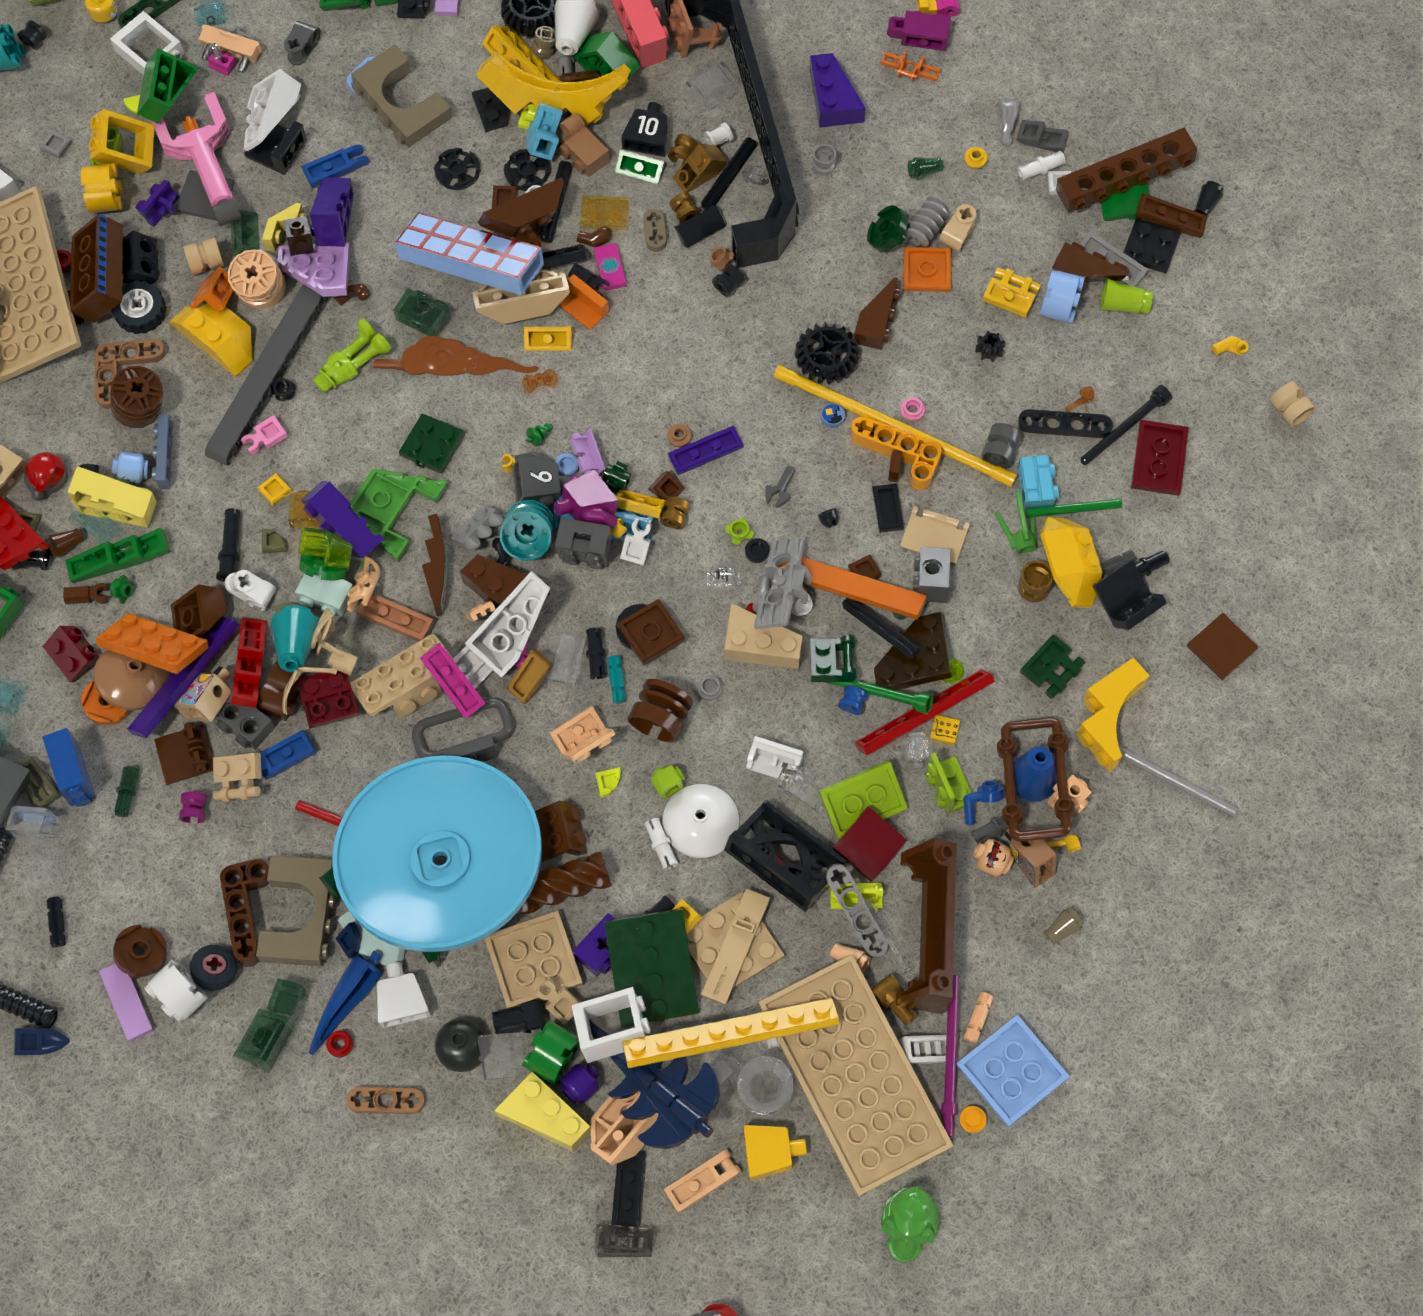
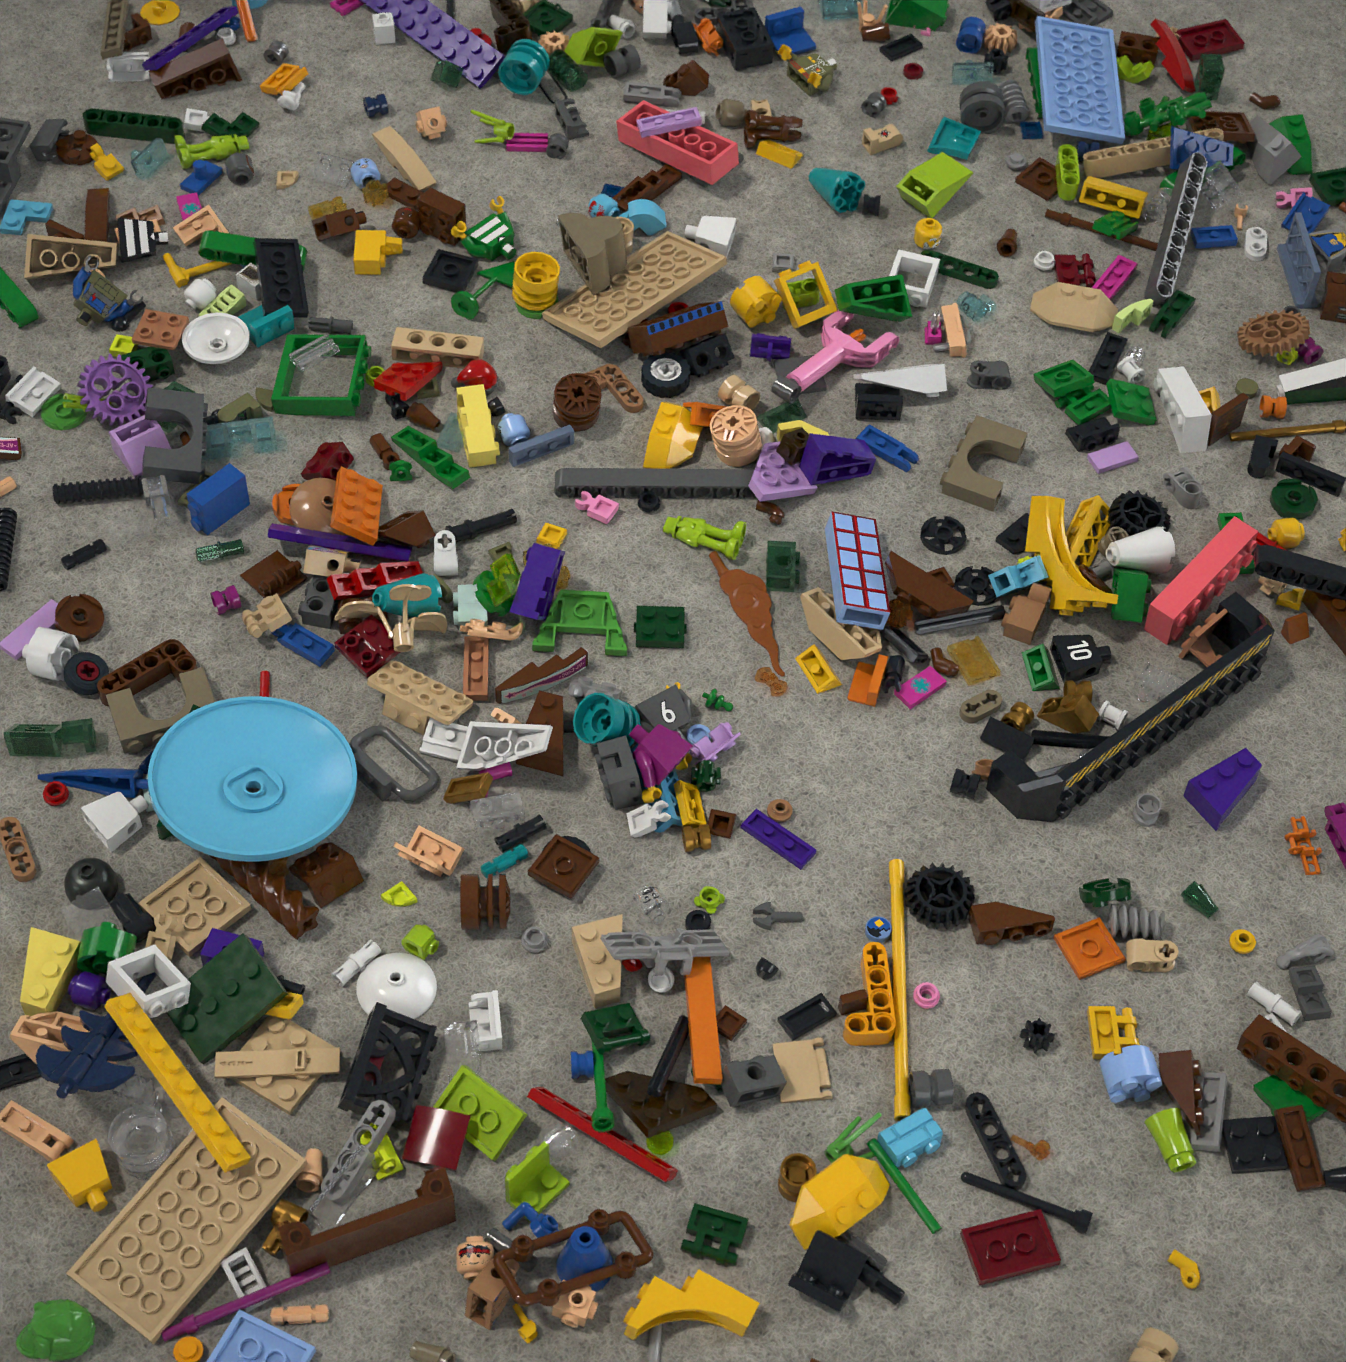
camera: 60 degrees right, 15 degrees down
(452, 680) = (428, 726): dark pink plate -> none
(944, 730) = (594, 1162): yellow tile -> none

